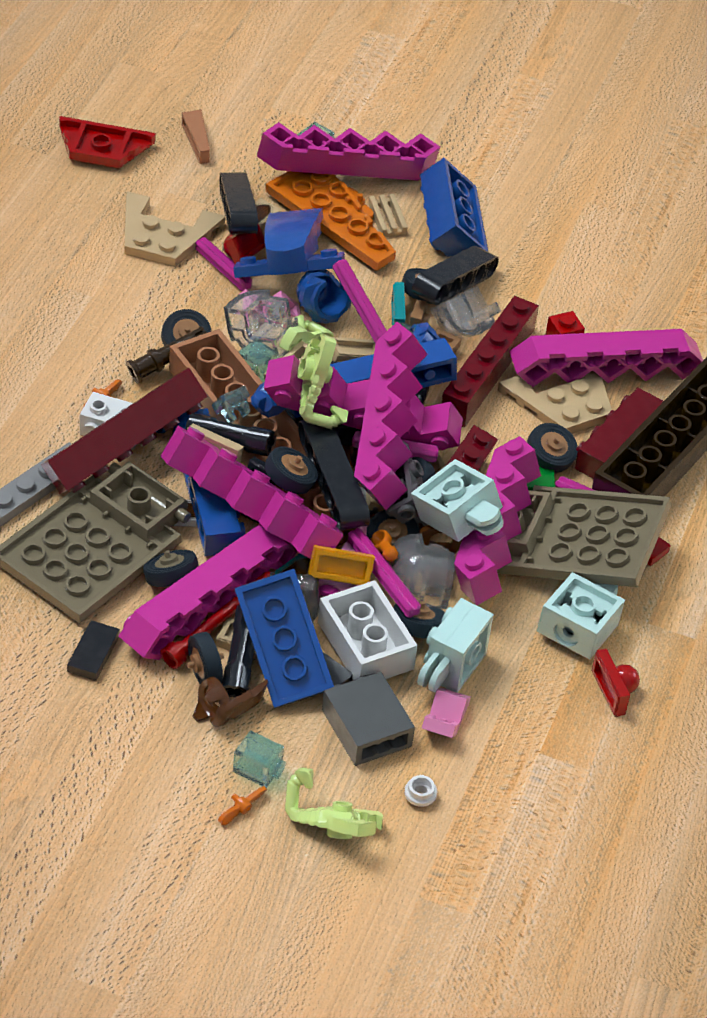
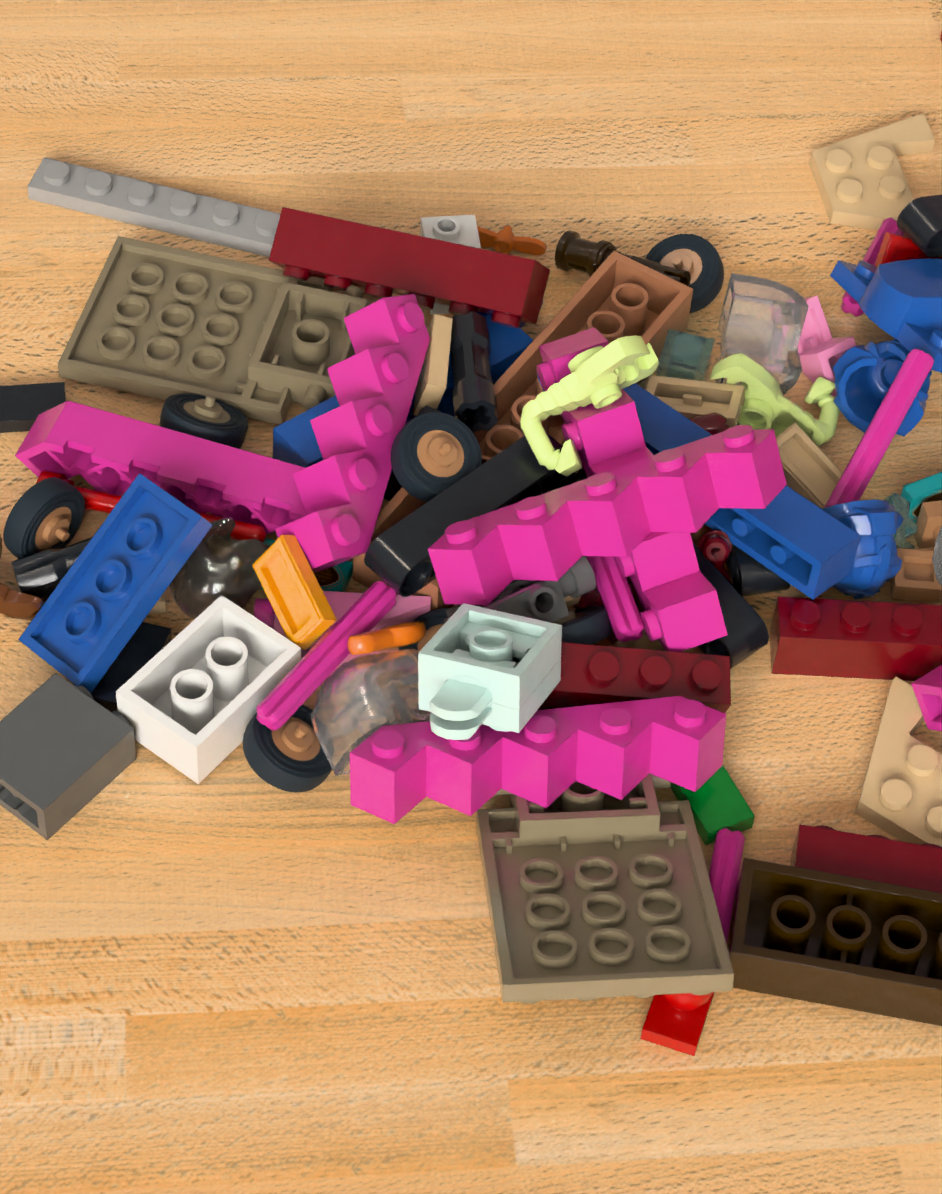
camera: 65 degrees right, 5 degrees up
(232, 400) = (524, 342): clear light blue tile -> none
(446, 712) = (133, 857): bright pink slope -> none
(456, 647) = (235, 806): light aqua brick -> none
(553, 446) = (788, 790): black wheel -> none
(581, 614) = (427, 958): light aqua brick -> none
(614, 681) = (320, 1063): red tile -> none

